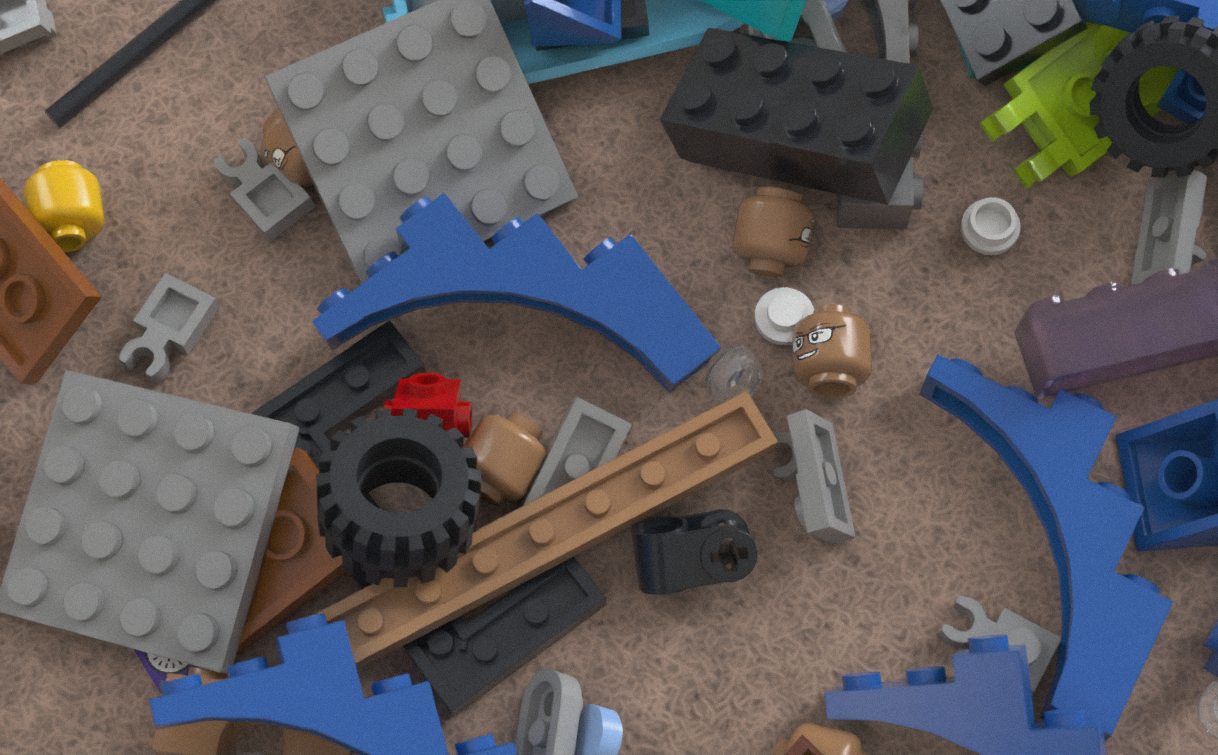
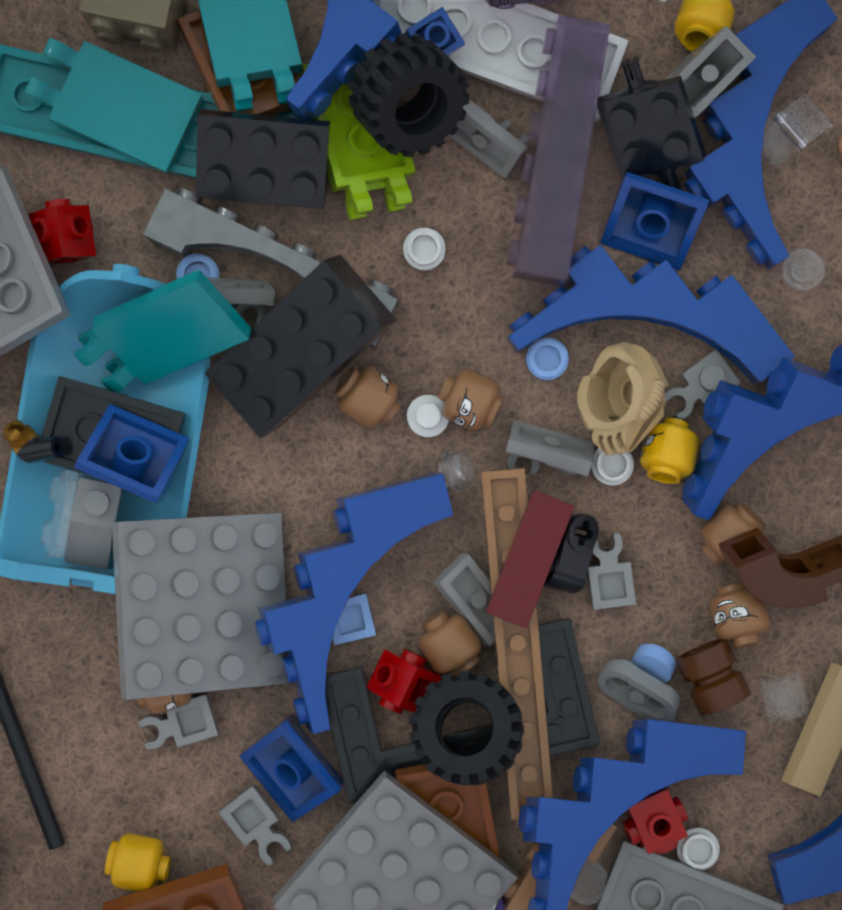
camera: 65 degrees left, 20 degrees up
(260, 339) = (292, 769): none -> blue slope
(480, 335) = (355, 621): none -> light blue tile
(662, 493) = (529, 559): none -> dark red tile
(682, 635) = (611, 581): none -> light grey plate
(837, 571) = (612, 468): none -> white plate
(893, 632) = (670, 451): none -> yellow head
(932, 431) = (547, 358): none -> light blue tile
(933, 531) = (622, 397): none -> tan helmet

